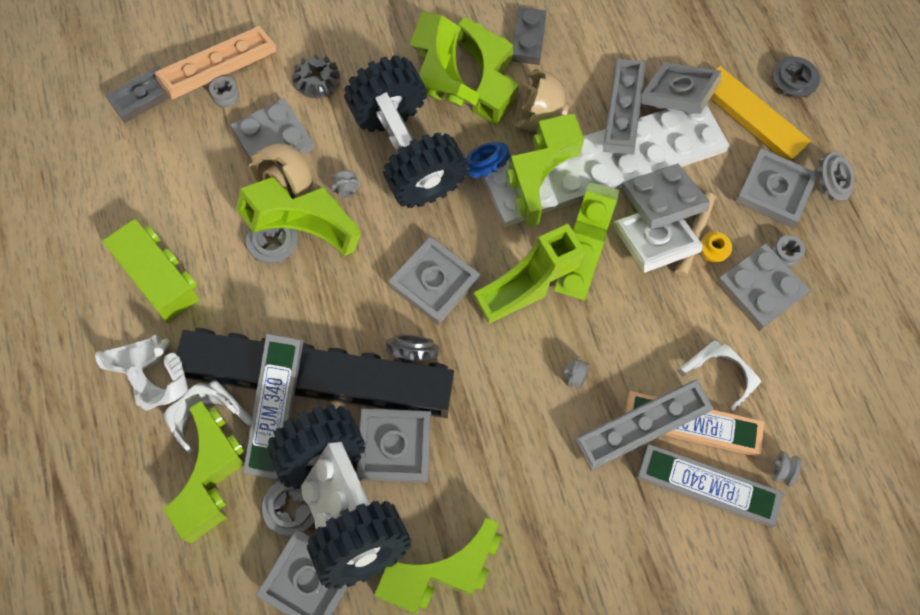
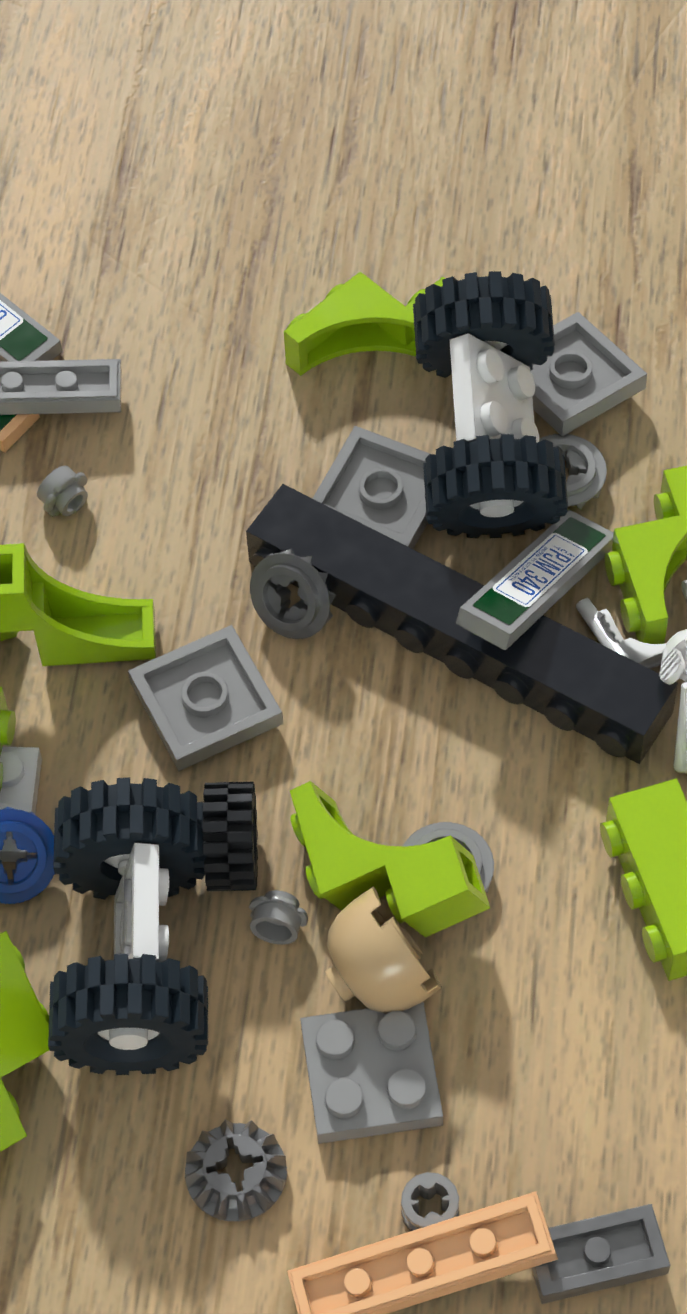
camera: 150 degrees left, 10 degrees down
(381, 199) = (230, 836): none -> black tyre

